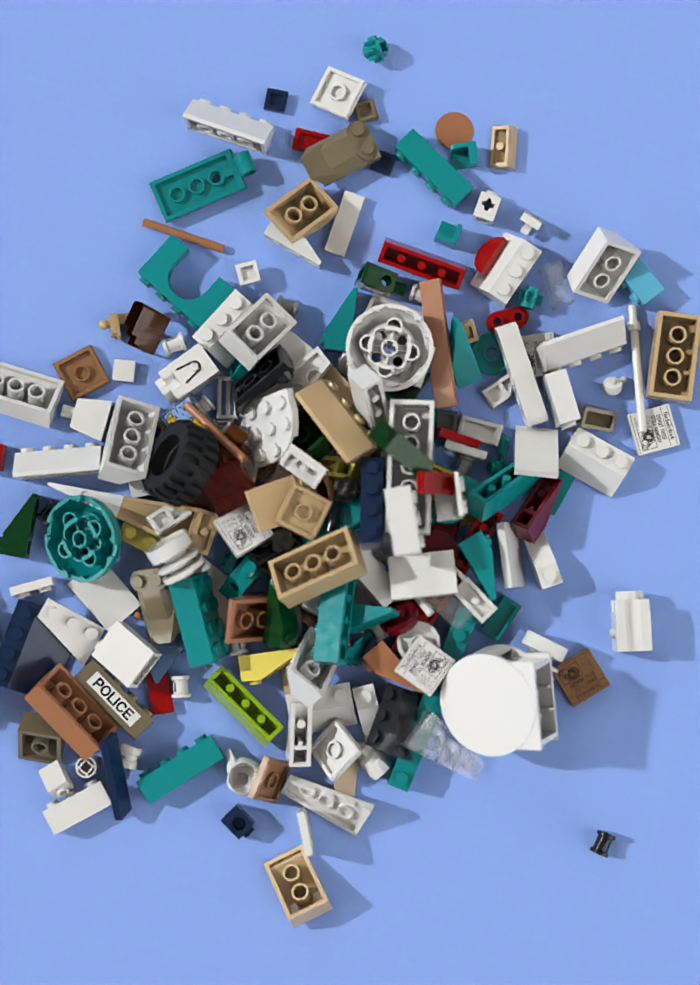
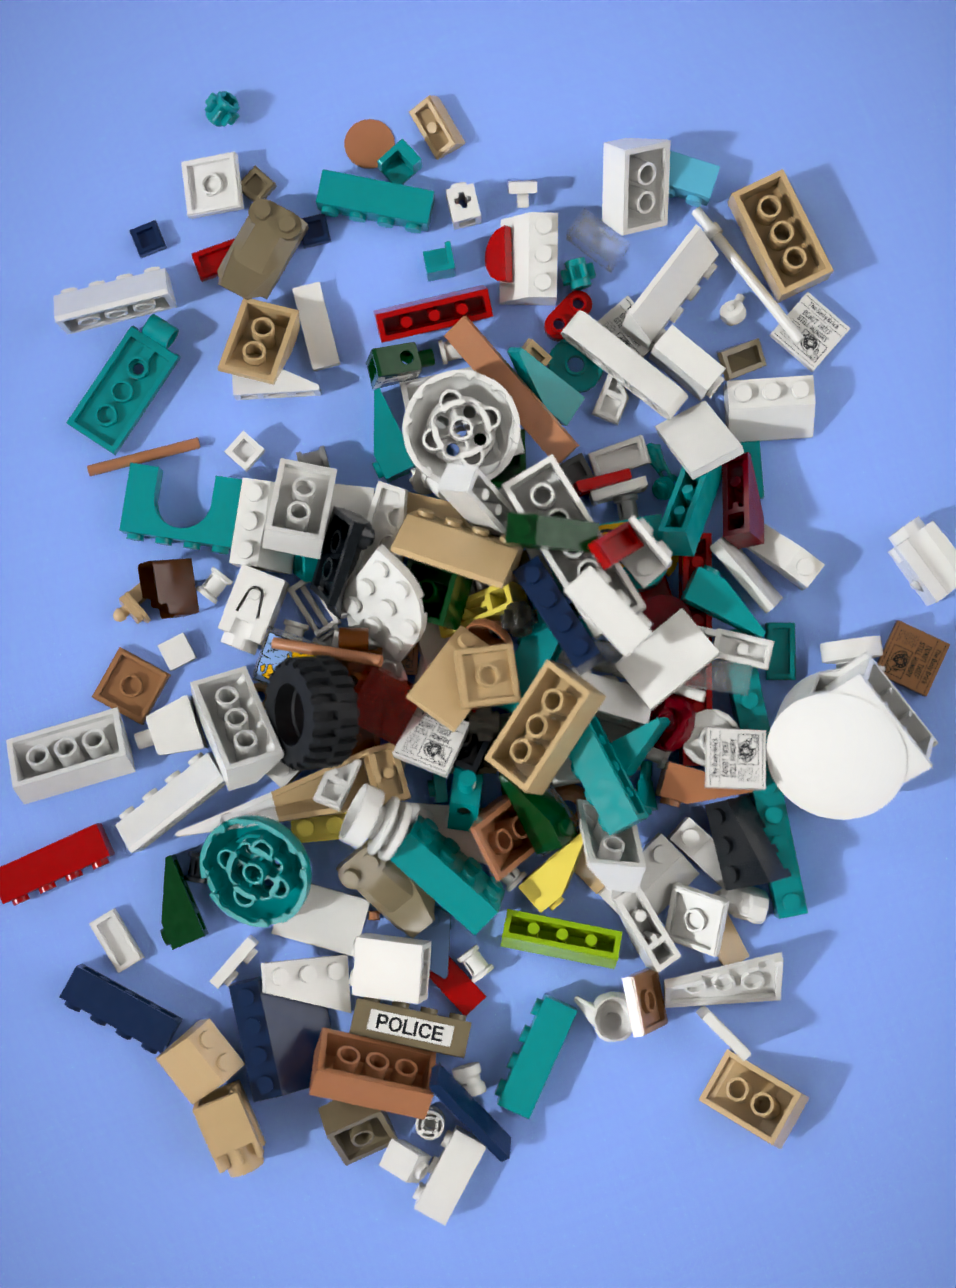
camera: 35 degrees left, 0 degrees up
(228, 821) = (629, 1065): dark blue brick -> none
(303, 466) = (453, 624): white hinge -> none
(334, 516) = (524, 658): black bar -> none
(435, 741) = (805, 836): clear wing -> none

